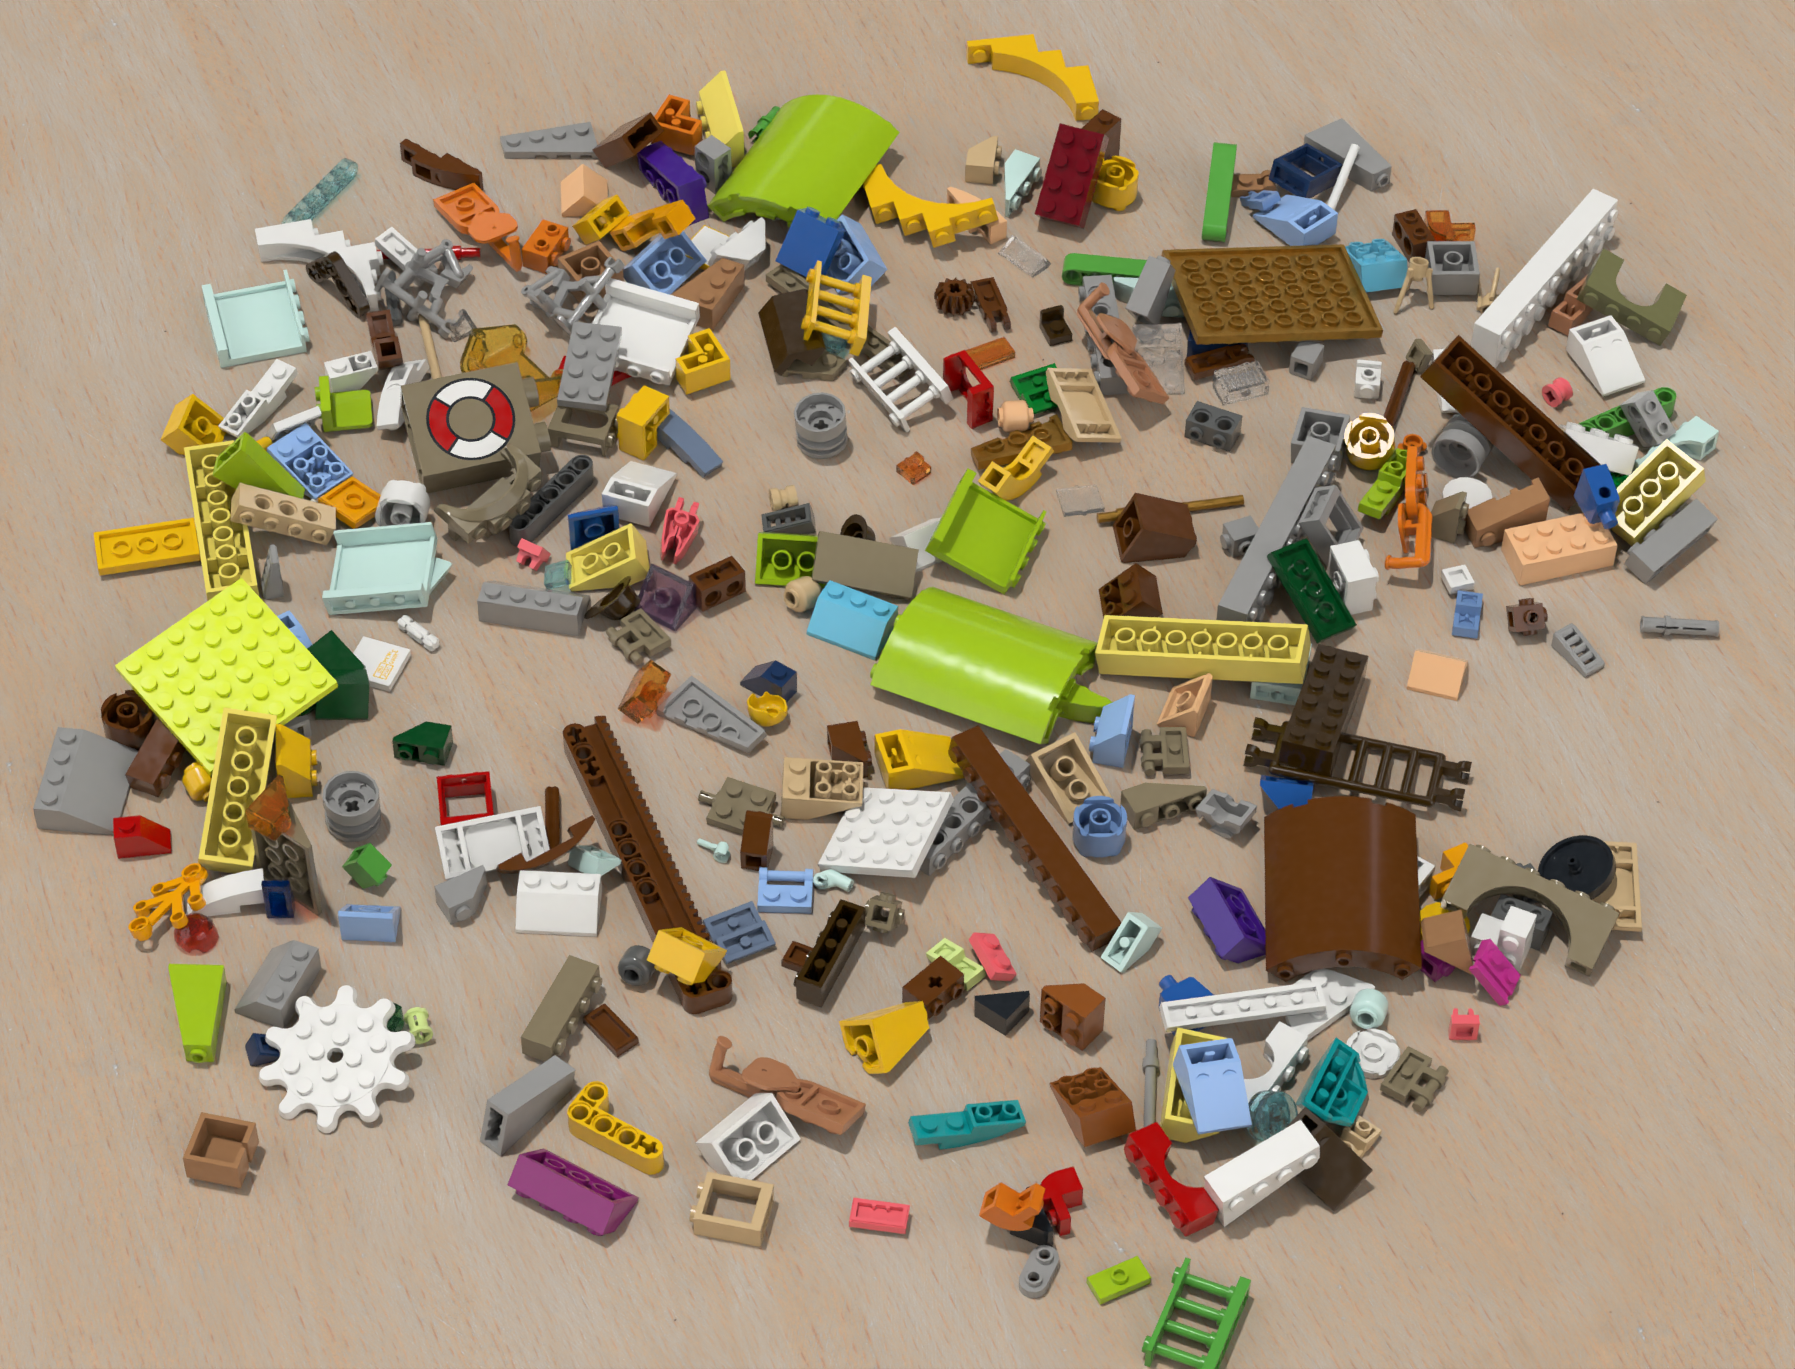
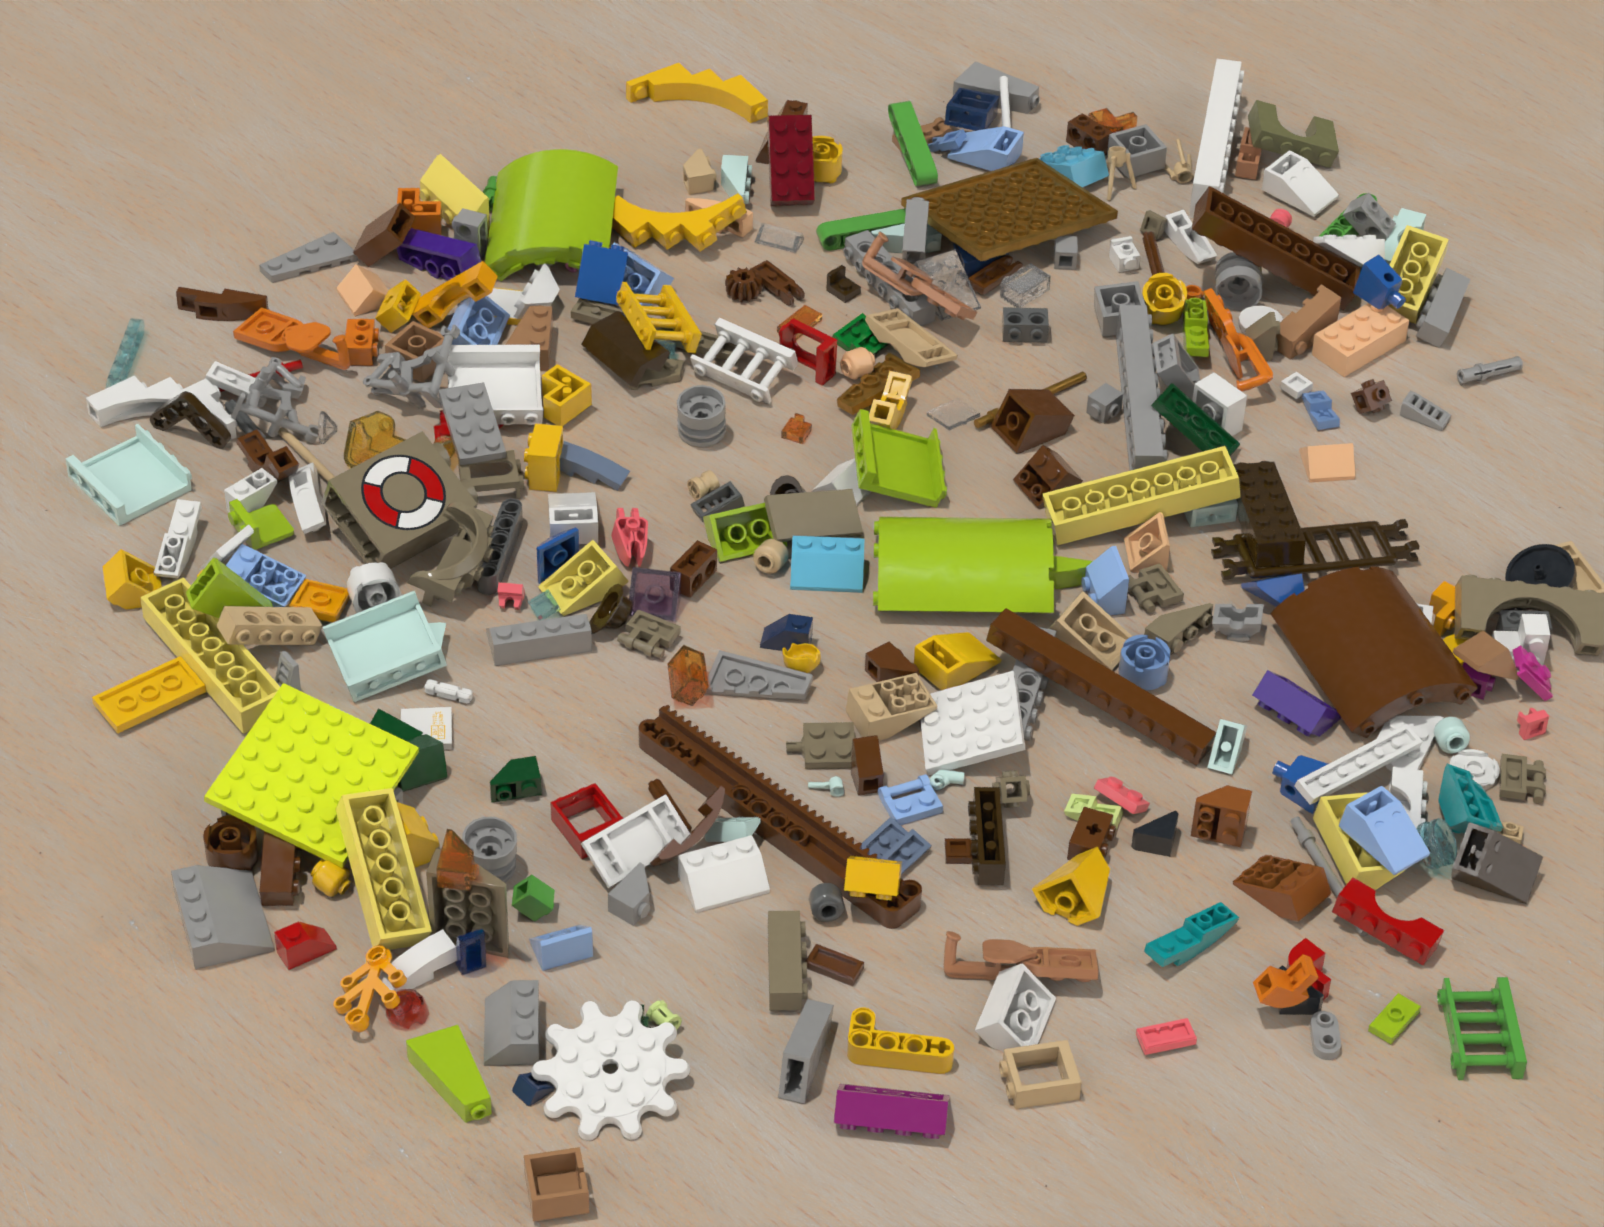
camera: 25 degrees left, 5 degrees down
(1261, 1171) = (1465, 885): white wedge -> none

